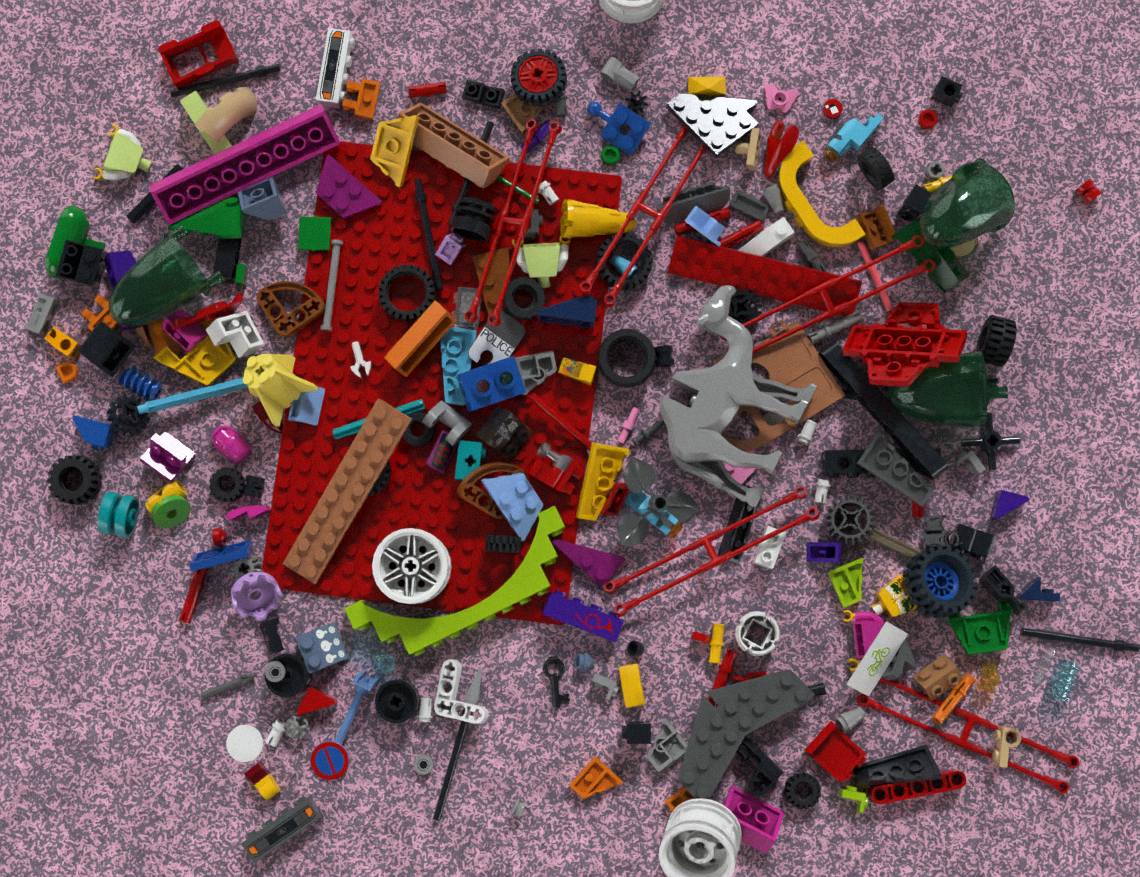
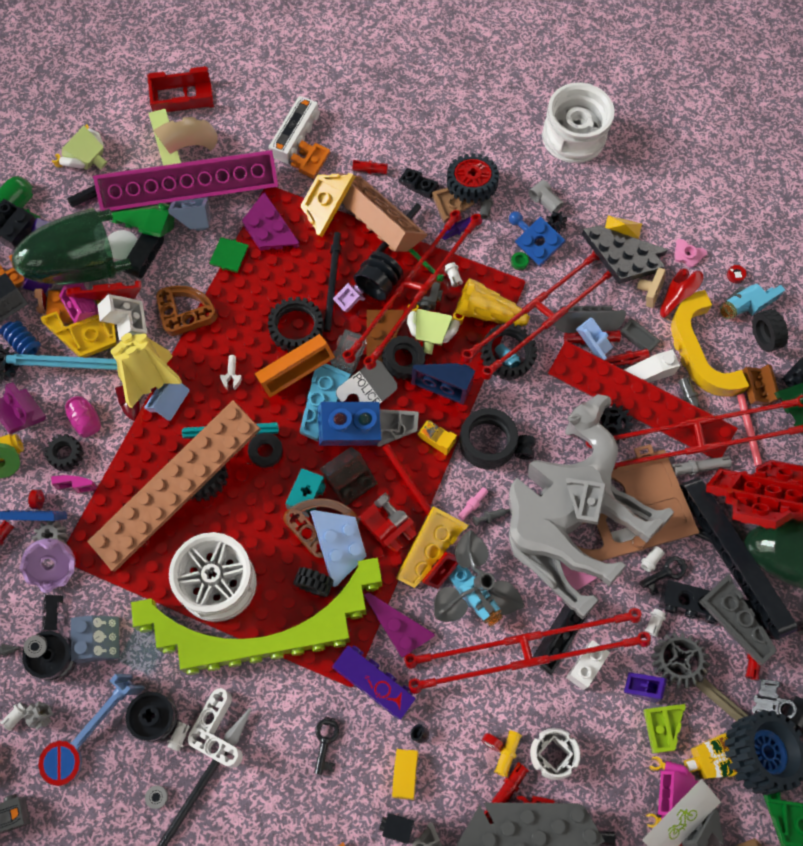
camera: 10 degrees right, 15 degrees down
(201, 249) = (121, 243): none -> white sticker
(241, 275) = (150, 271): green tile -> none
(254, 486) = (88, 460): black wheel -> none
(260, 71) = (228, 117): black bar -> none
(315, 700) = (67, 692): red slope -> none
(331, 285) = (245, 267): light grey bar -> none
(378, 662) = (147, 670): clear light blue wheel -> none
(441, 453) = (281, 477): slope -> none
(450, 418) = (304, 454): light grey connector -> none
(583, 662) = (361, 732): sand blue plate -> none
(603, 682) = (375, 760): light grey bracket -> none
(733, 401) = (586, 499): none -> light grey wing
(774, 198) = (665, 332): light grey cone -> none
(809, 454) = (666, 572): none -> black piece

